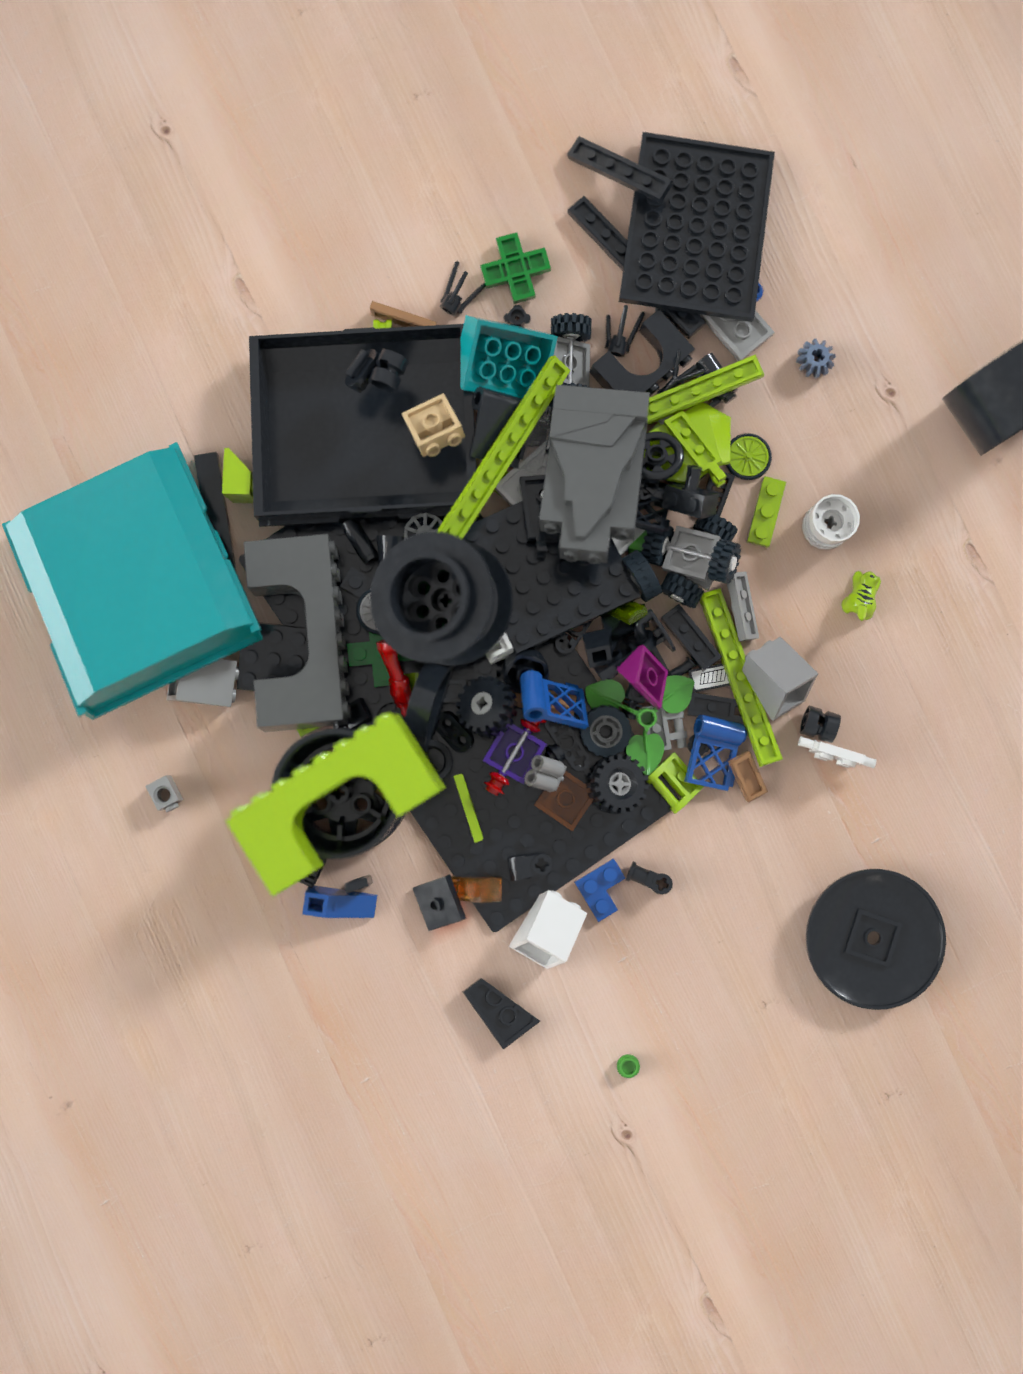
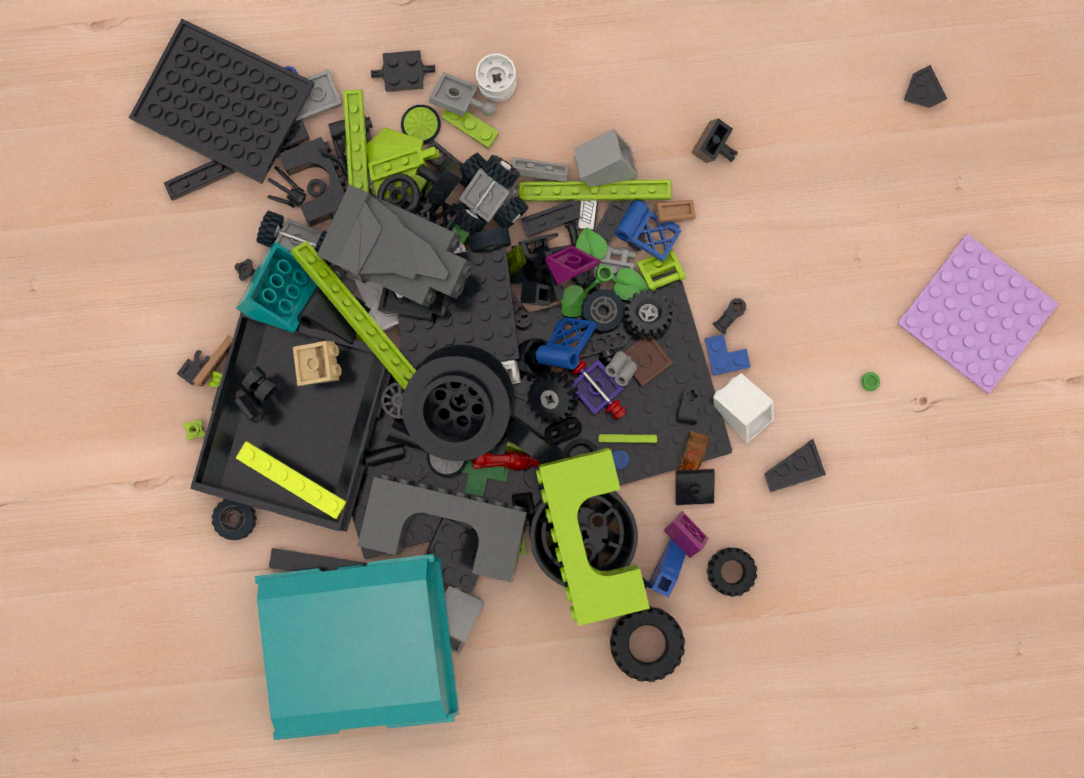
camera: 65 degrees left, 0 degrees up
(155, 789) = (529, 684): light grey brick -> none
(217, 925) = (647, 670): none -> black tyre
(223, 390) = (222, 522): none -> black wheel
(237, 479) = (303, 535): lime slope -> none
(293, 443) = (291, 480): none -> neon yellow plate
(320, 316) = (189, 429): none -> lime plate
(352, 997) = (747, 579): none -> black tyre
(358, 883) = (658, 548): black tile -> none
(382, 911) = (686, 534): none -> magenta slope
(387, 295) = (192, 368): none -> black plate
(442, 806) = (620, 459): none -> blue plate
(451, 301) = (215, 317): black plant -> none
(515, 268) = (204, 257): green plate -> none
(620, 169) = (154, 146): black plate -> none
(635, 358) = (316, 182): none -> black plate
(749, 1166) = (977, 313): none -> lavender plate
(785, 491) = (465, 98): none -> light grey plate
(801, 416) = (403, 71): none -> black plate
(807, 358) = (361, 37): sand blue gear -> none
(826, 729) = (657, 136): black wheel -> none
(829, 752) = (677, 142): white plate -> none
(842, 793) = (713, 142): none -> black brick
(862, 598) = (564, 73): lime animal -> none
(908, 944) = (840, 129): black dish -> none
(990, 1019) = (925, 89): none -> black plate

